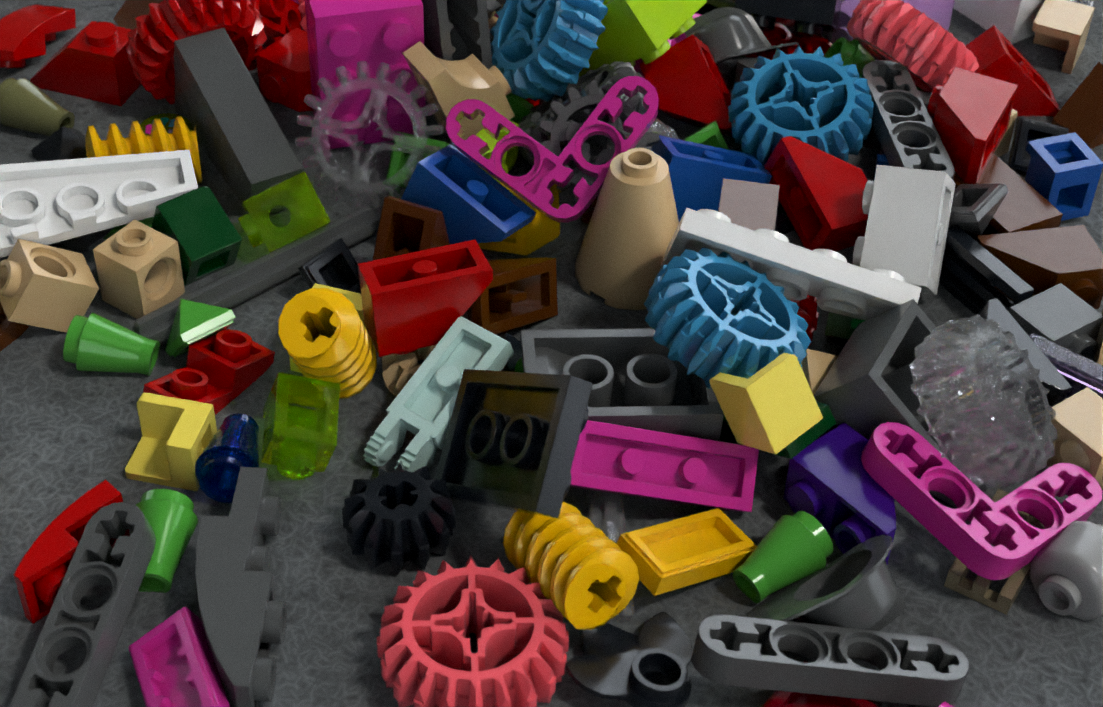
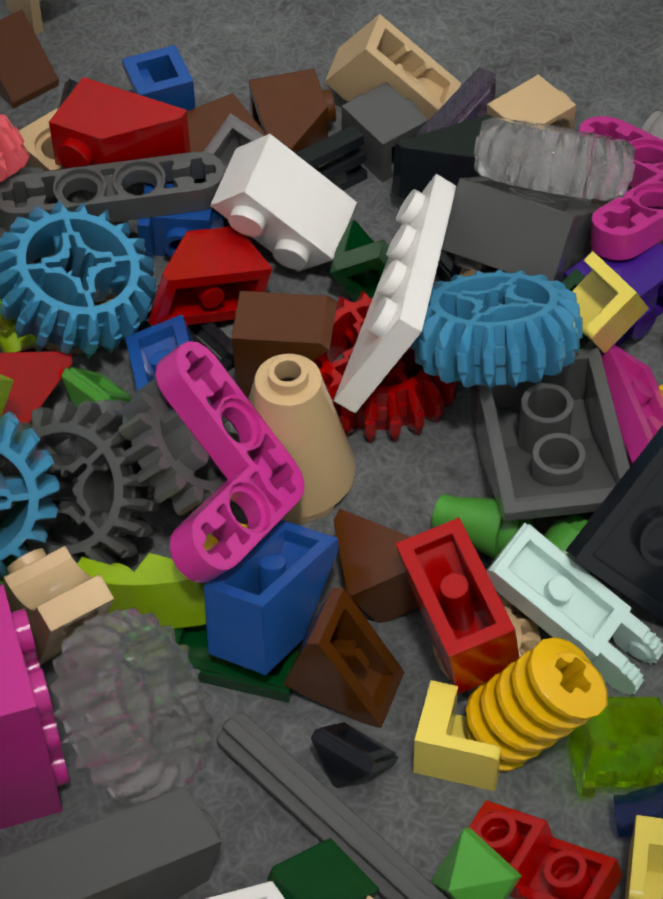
camera: 90 degrees left, 10 degrees up
(298, 198) = (261, 805): clear neon green brick -> none

